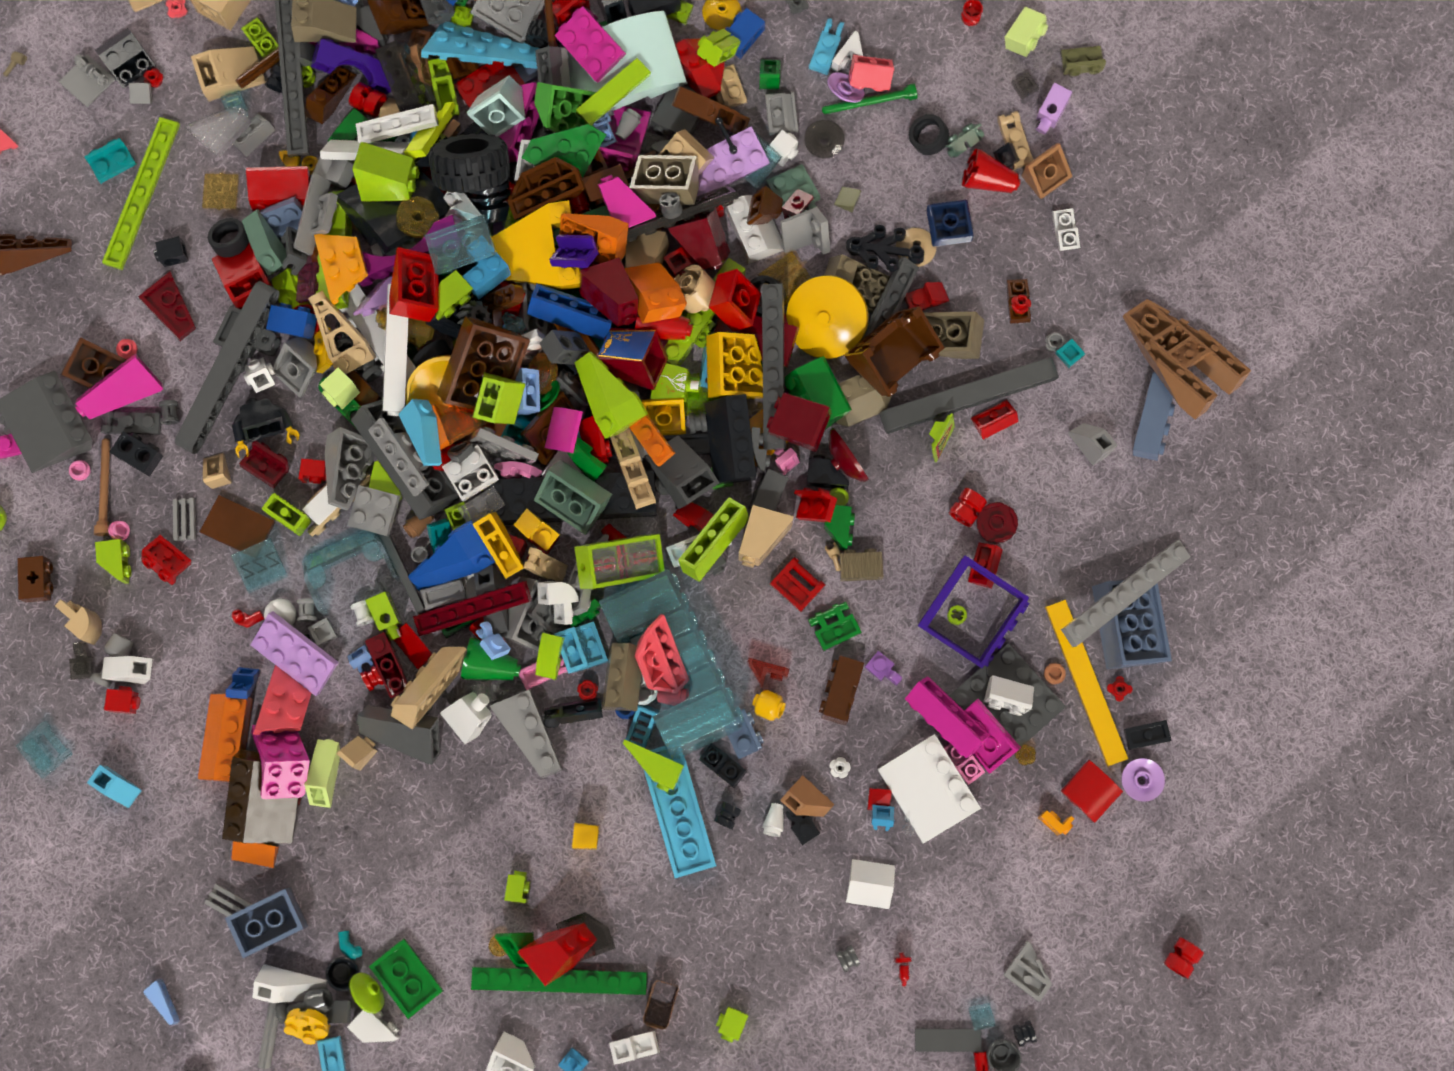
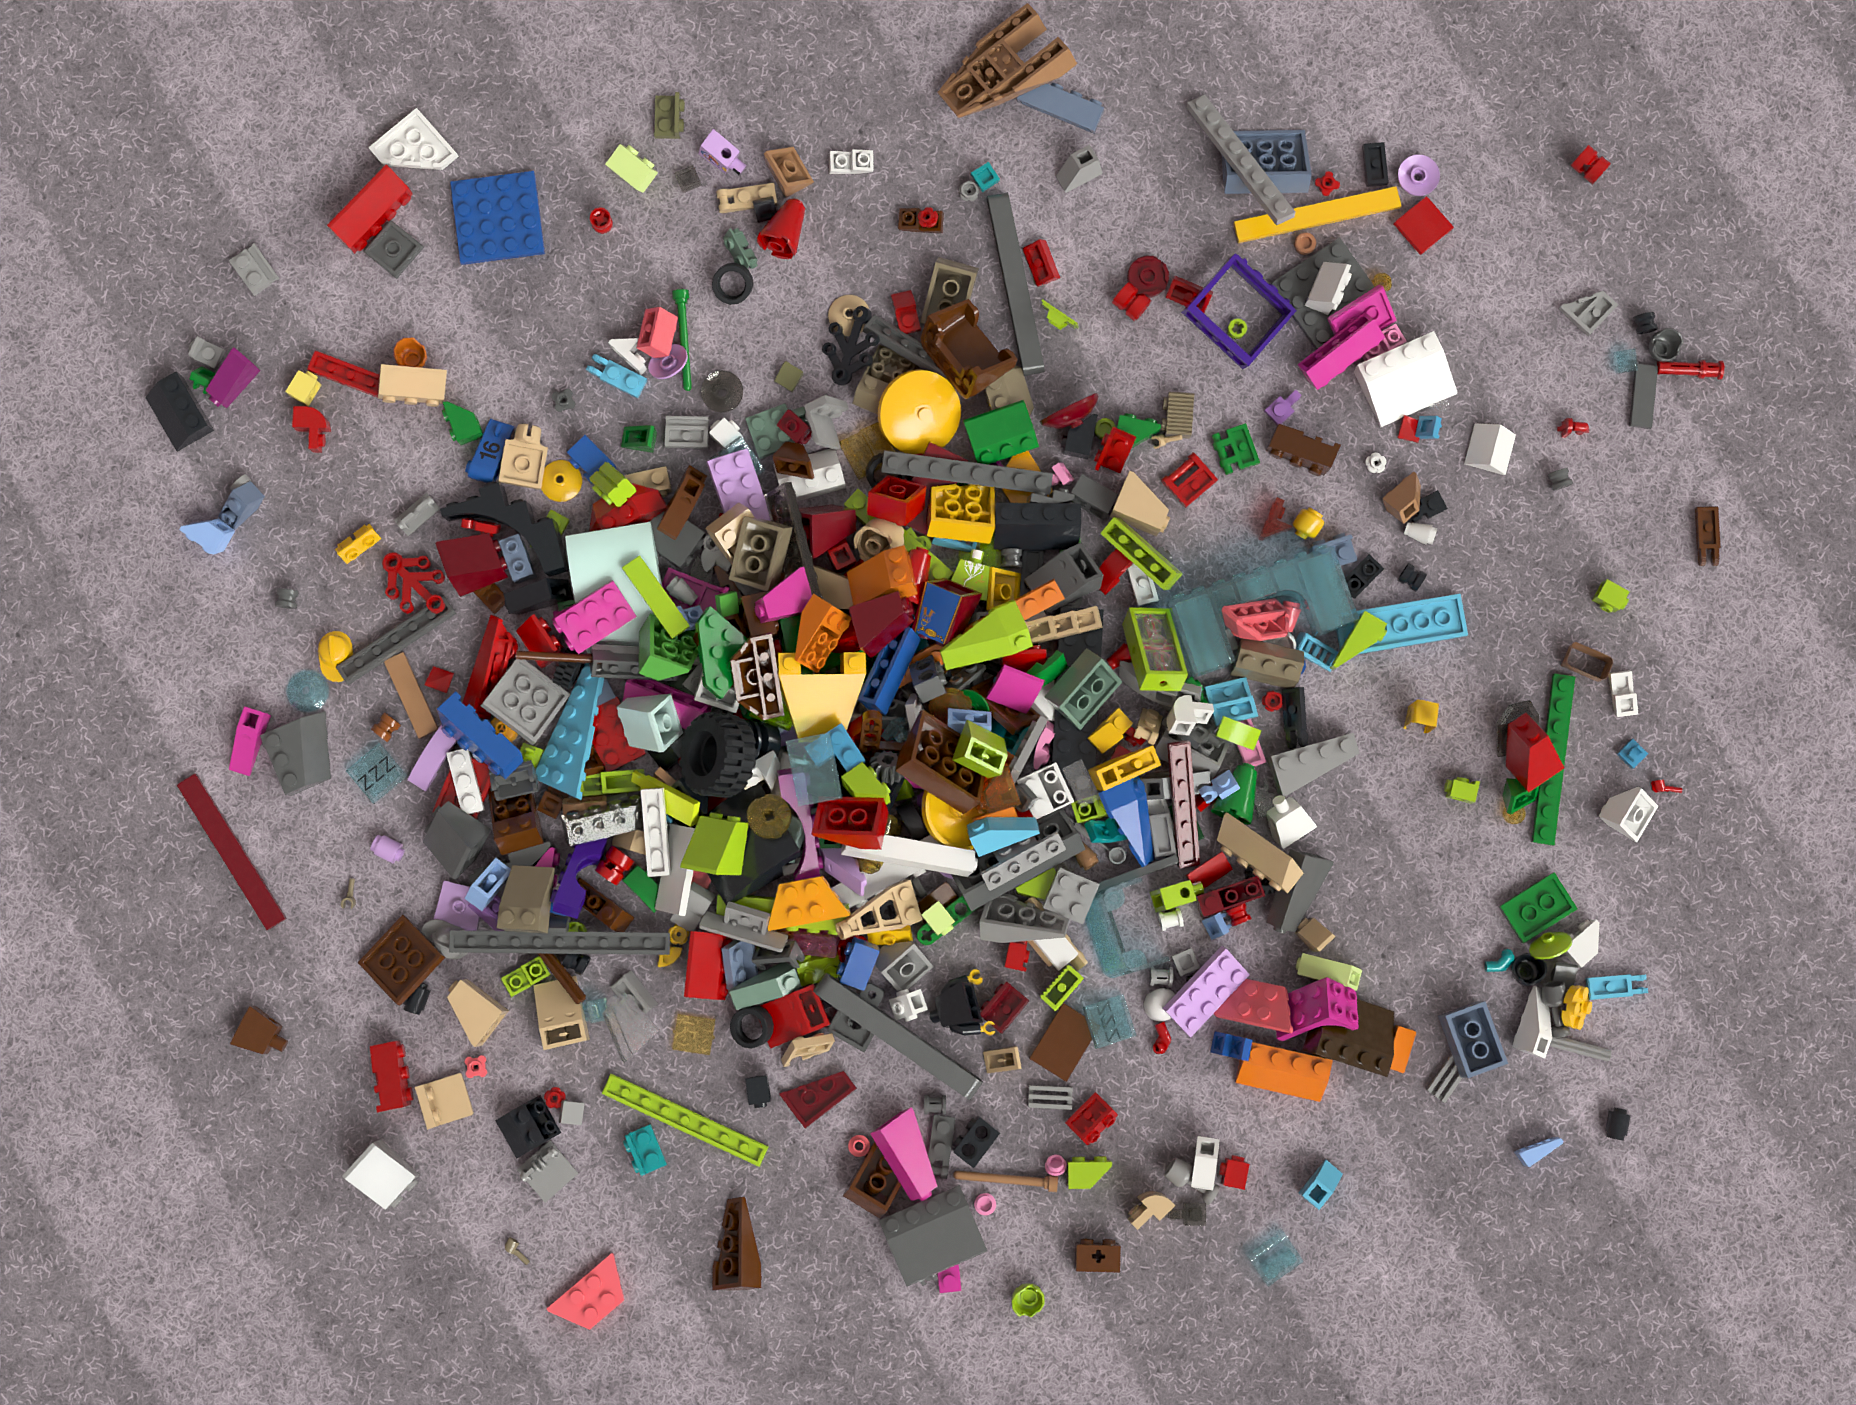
camera: 90 degrees left, 5 degrees up
(213, 291) = (807, 1047): none -> tan wing
(574, 251) = (836, 652): dark purple bracket -> none
(615, 156) = (727, 603): none -> bright green tile
(670, 205) = (788, 550): dark grey wheel -> none
(732, 148) = (731, 482): black hinge -> none
(799, 421) = (1034, 451): dark red slope -> none
(957, 213) = (841, 268): dark blue brick -> none
(1052, 820) = (1448, 266): light orange bracket -> none

